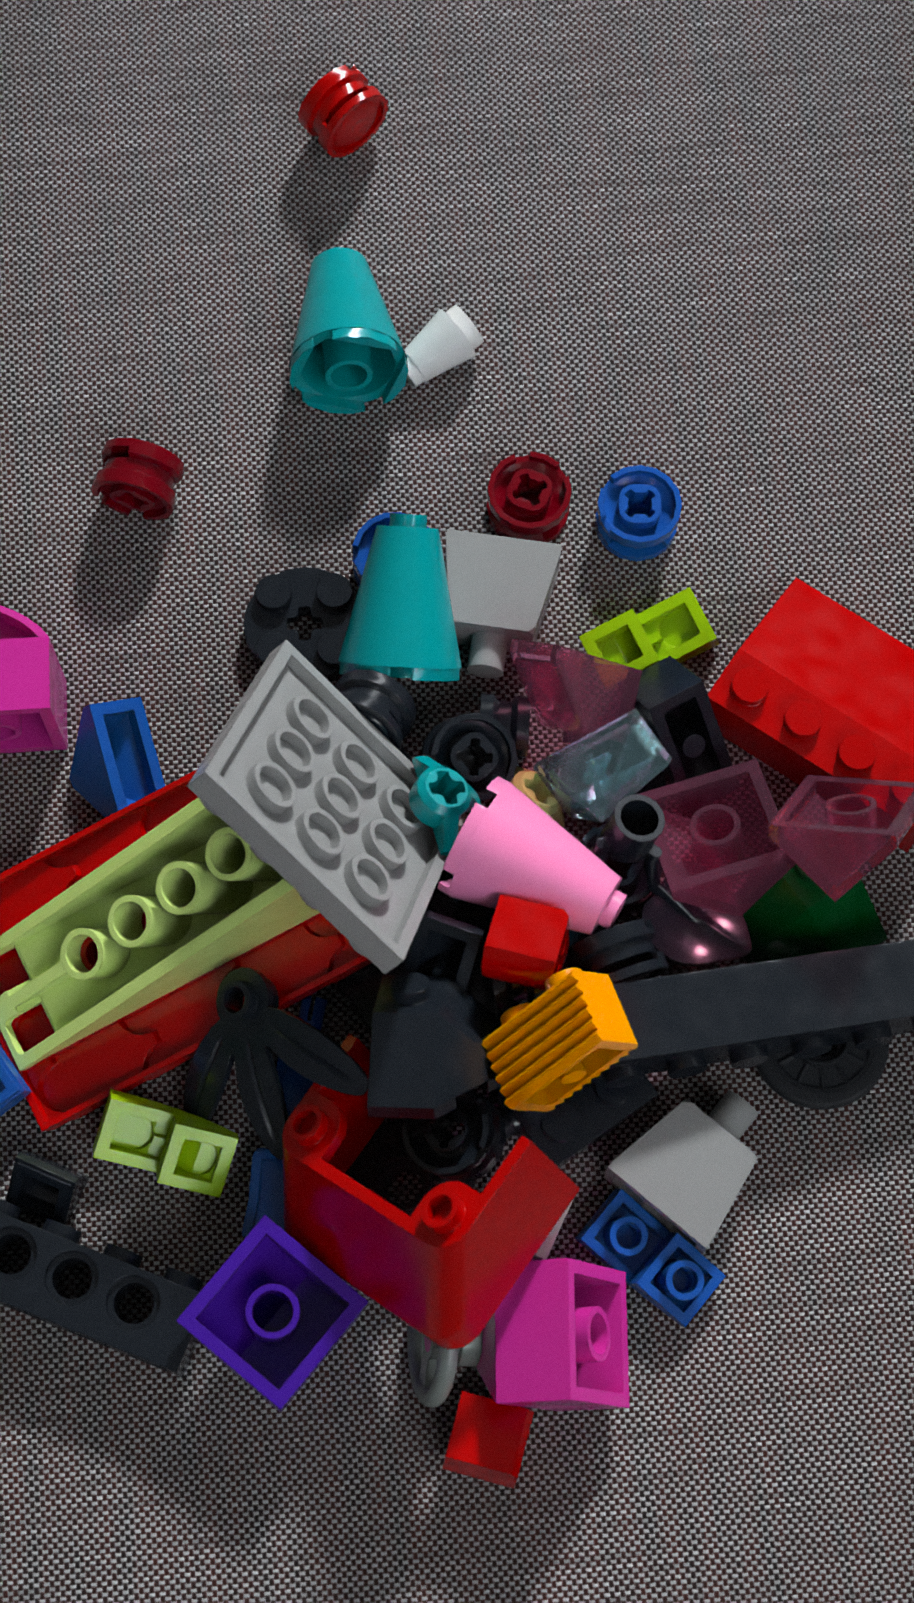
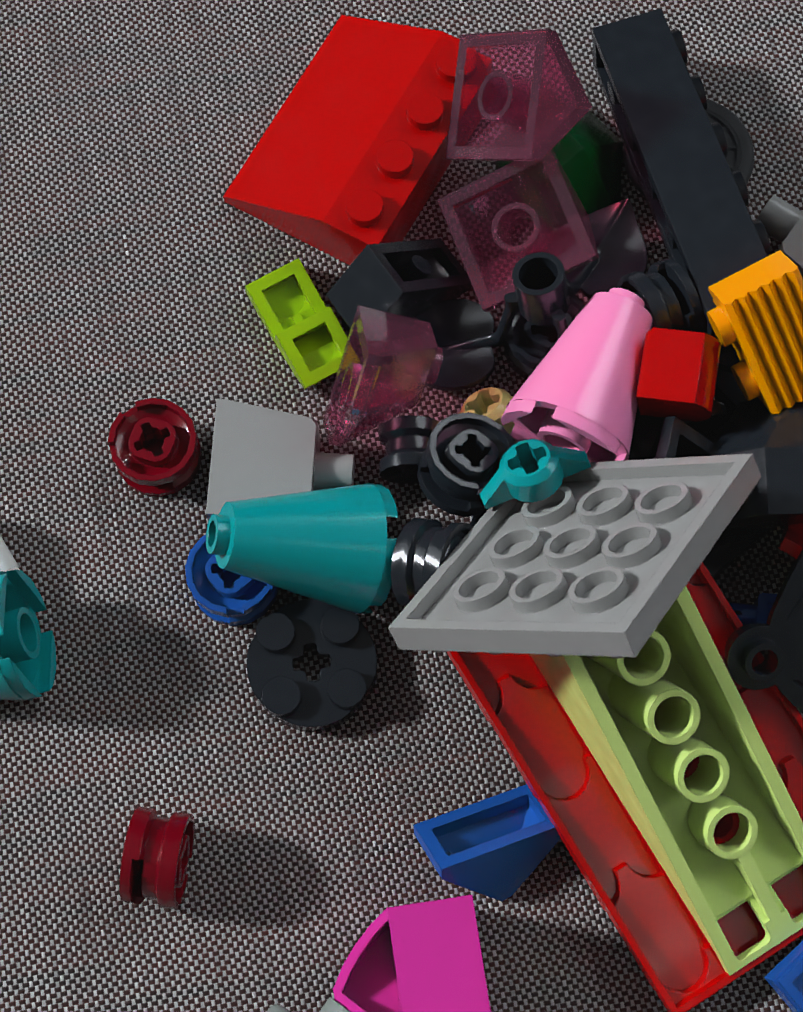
camera: 90 degrees left, 0 degrees up
(603, 767) = (474, 329): clear light blue slope -> none
(638, 513) = (165, 340): blue wheel -> none

